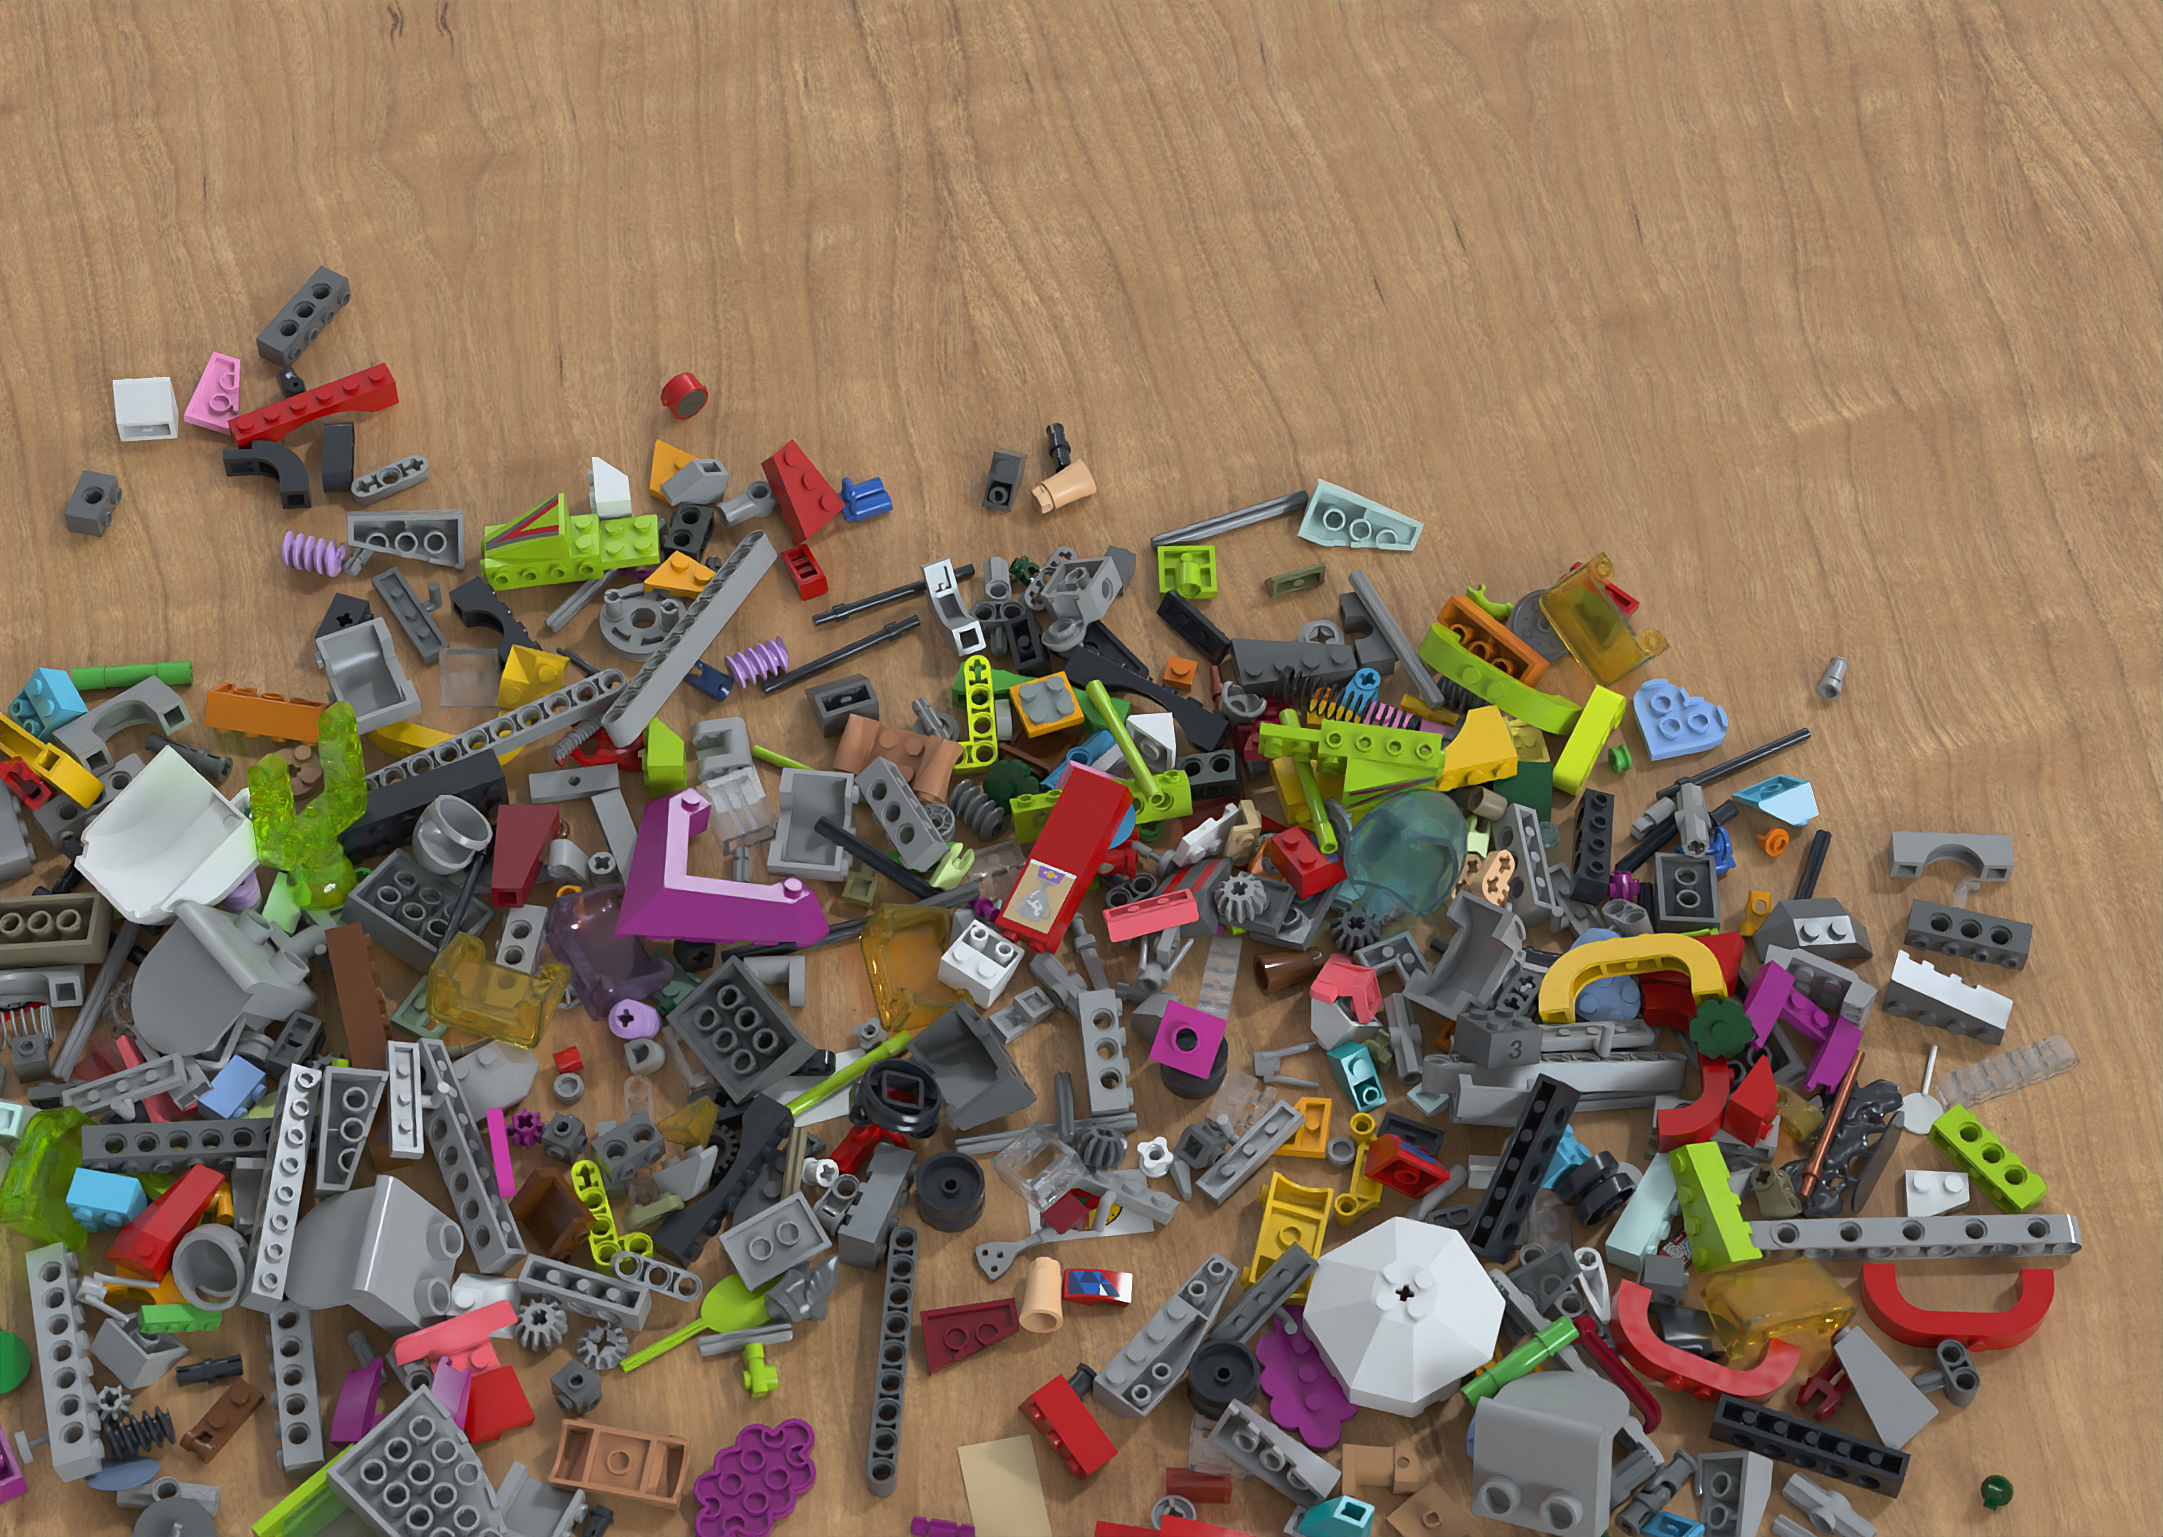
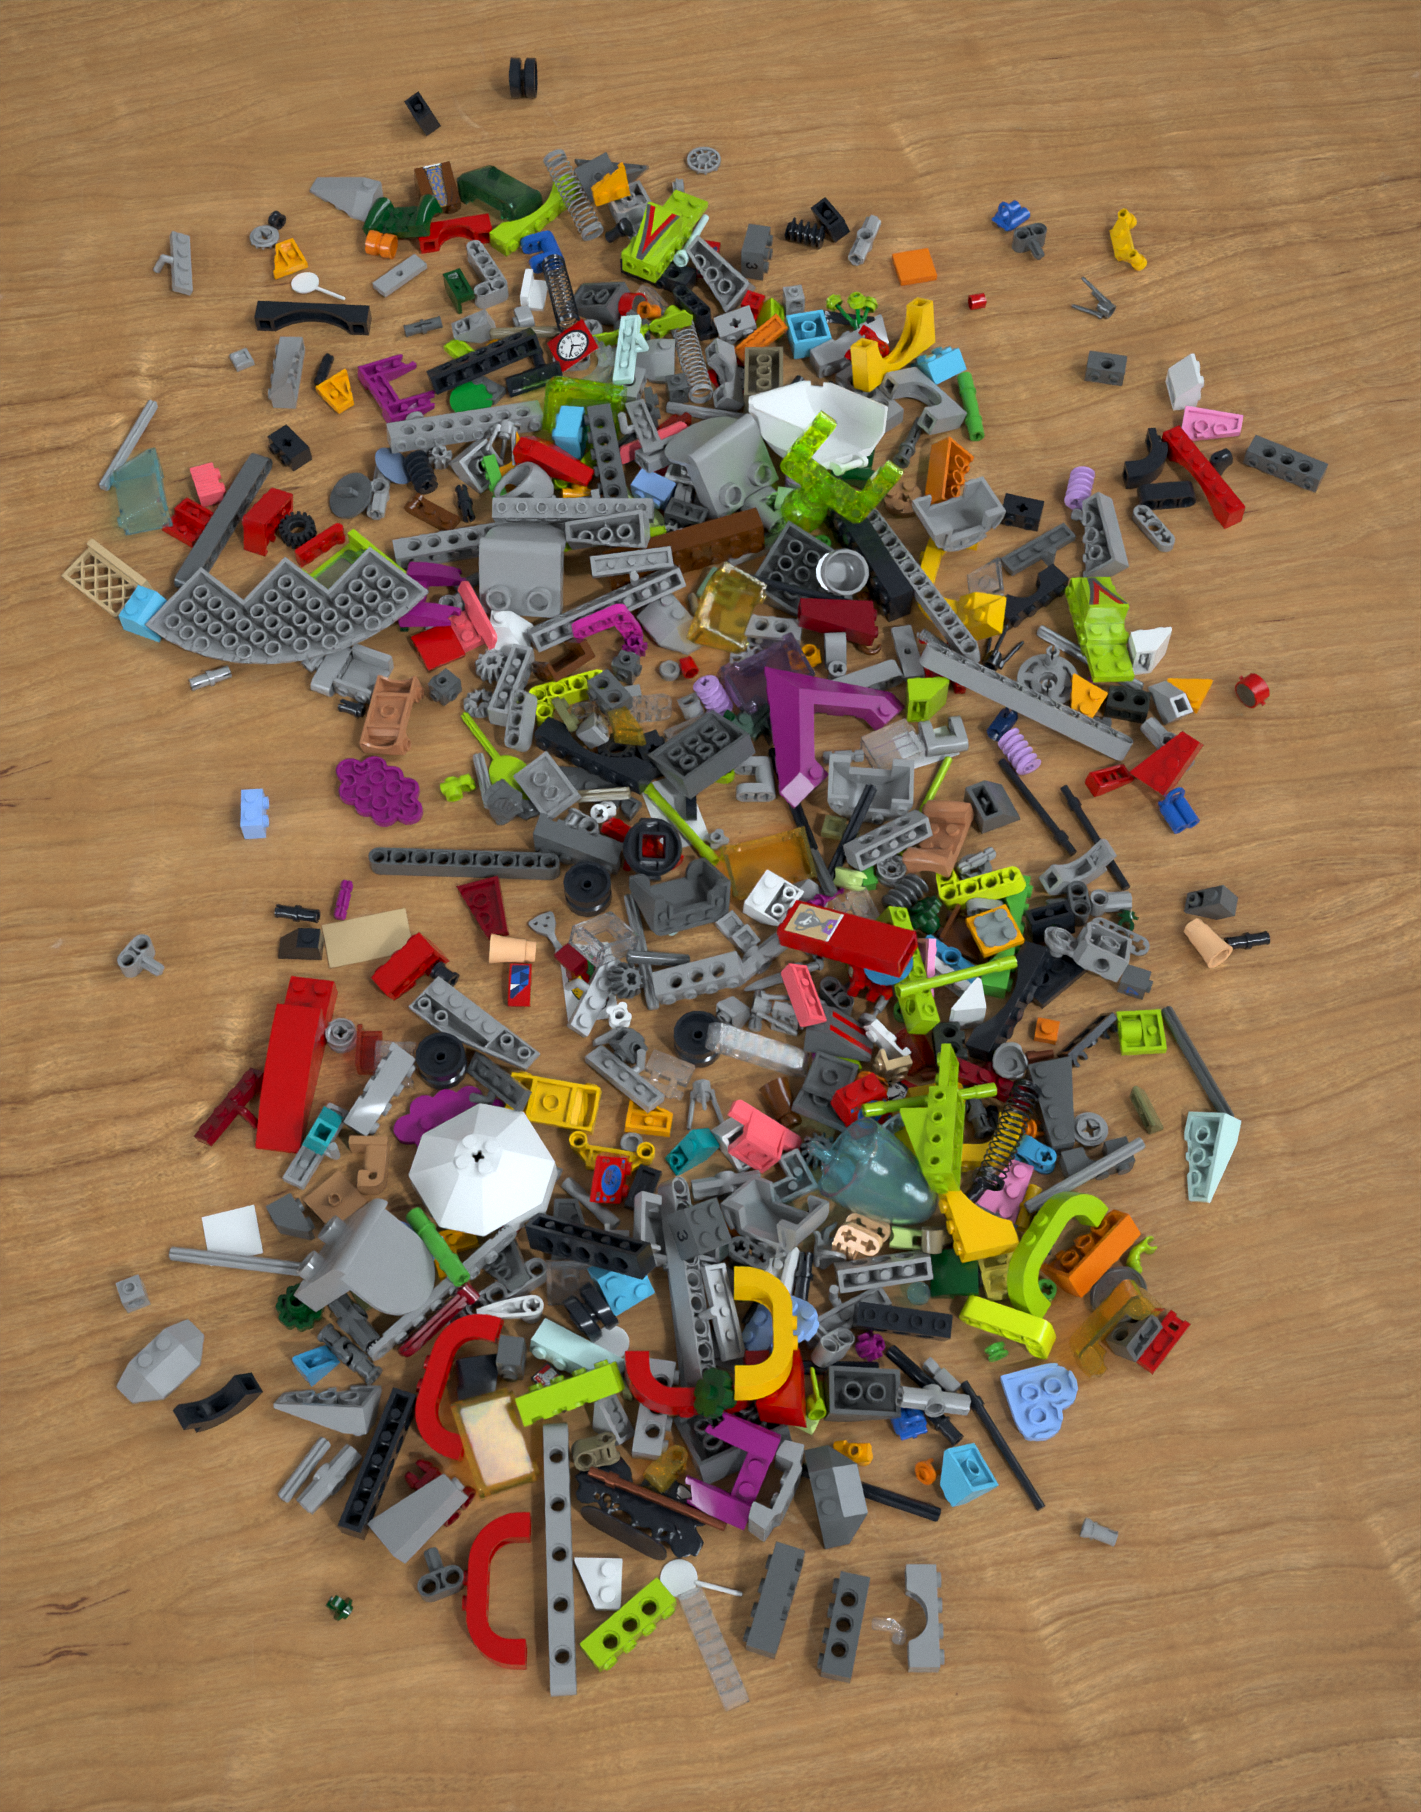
camera: 90 degrees right, 5 degrees up
(1209, 1035) = (702, 1028): dark pink piece -> none
(1240, 897) = (826, 1058): light grey gear -> none
(1379, 1054) = (708, 1163): olive plate -> none
(1753, 1106) = (655, 1424): red slope -> none

